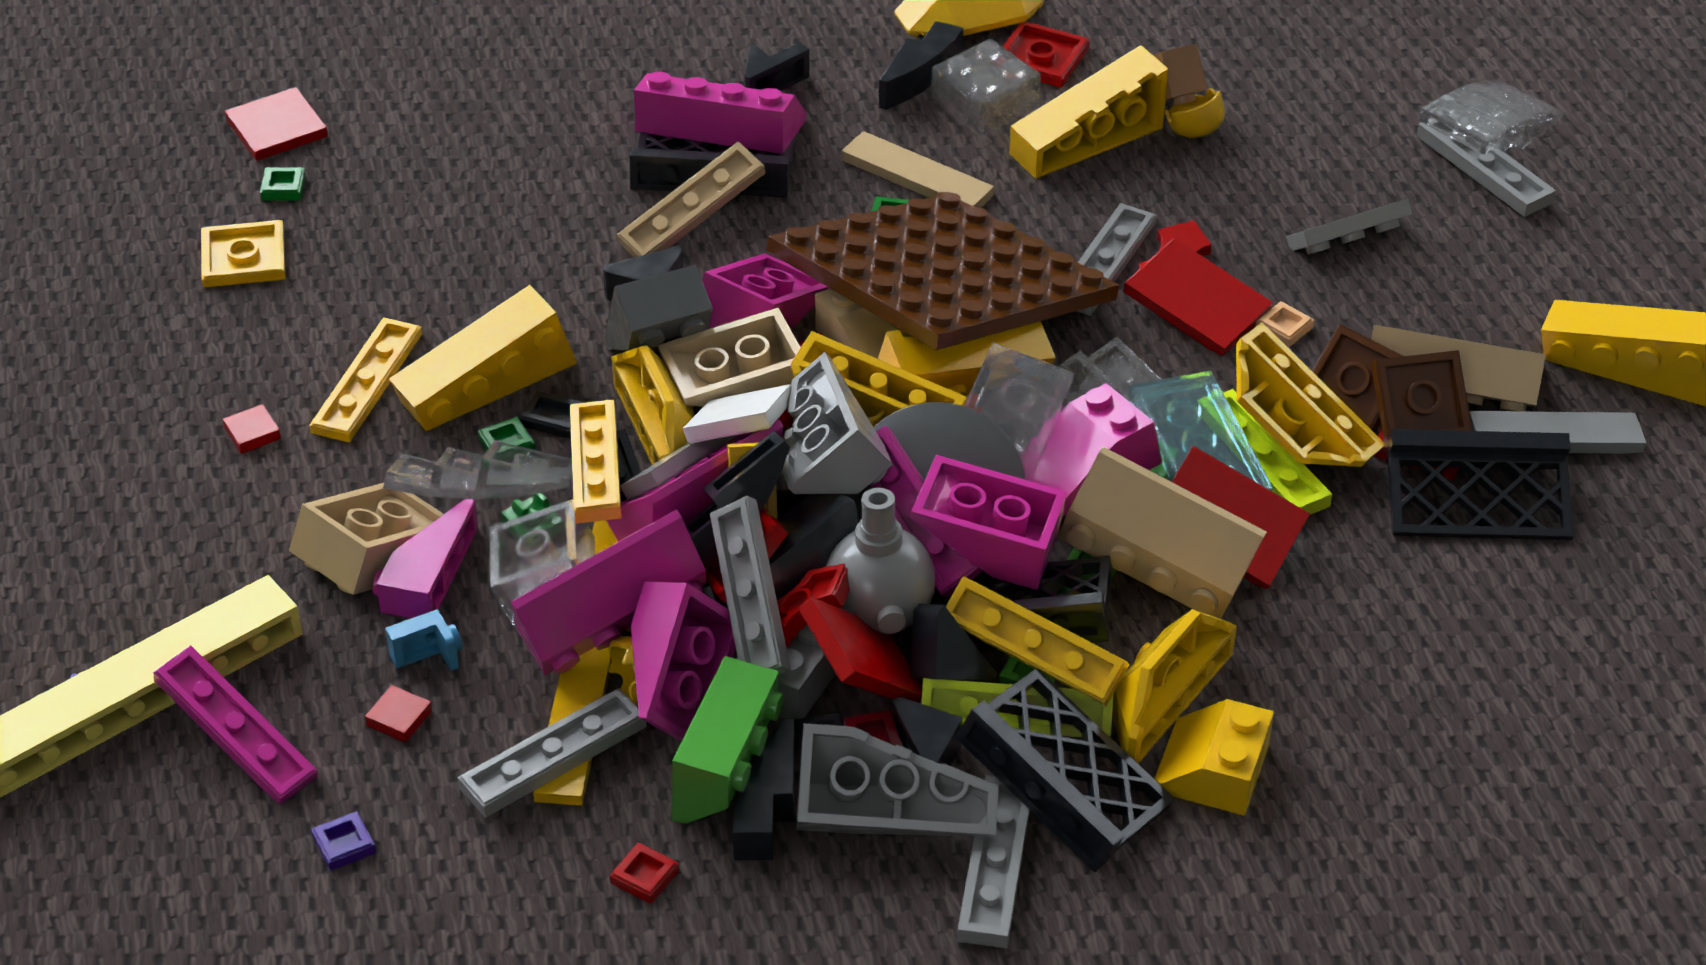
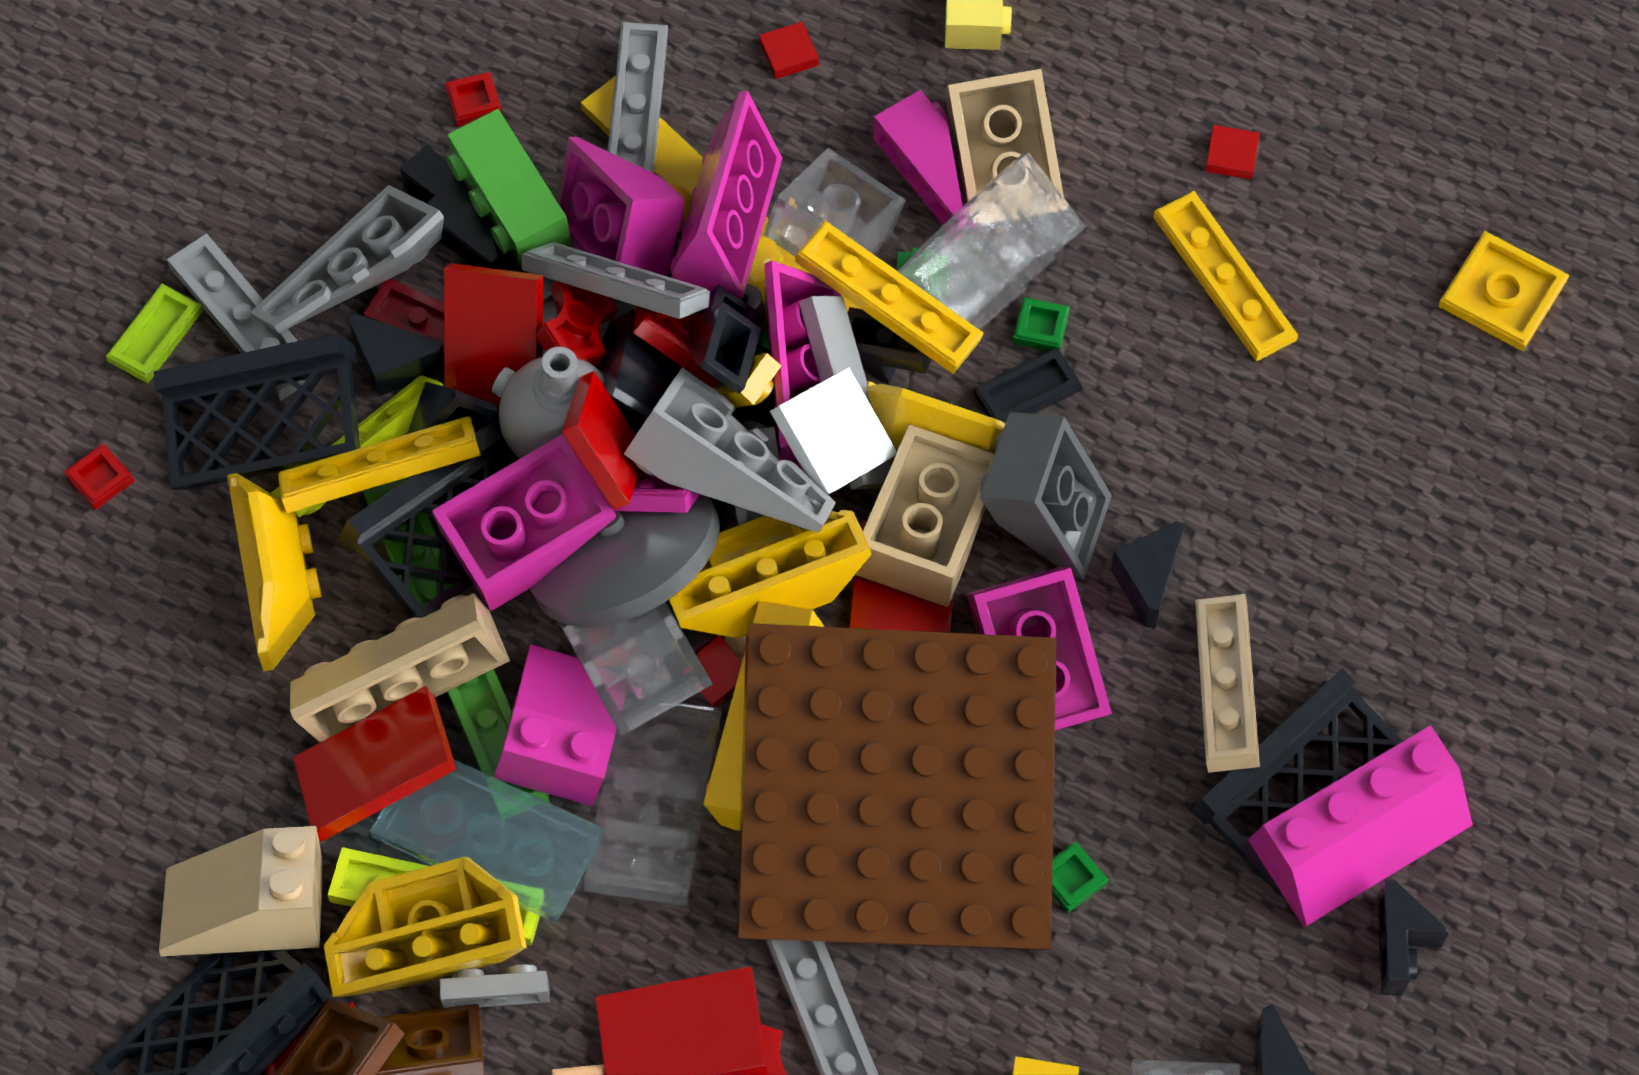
camera: 130 degrees right, 20 degrees up
(282, 183) = (1592, 386): green tile -> none
(422, 638) = (837, 115): dark azure bracket -> none
(486, 361) = (1137, 354): yellow wedge -> none
(904, 468) = (600, 438): none -> red tile
(913, 170) = (1116, 955): tan tile -> none
(1070, 911) = (154, 333): none -> lime tile
(1217, 755) = (171, 540): yellow slope -> none
(1217, 850) = (99, 476): none -> red tile
(1388, 523) = (246, 896): none -> tan slope

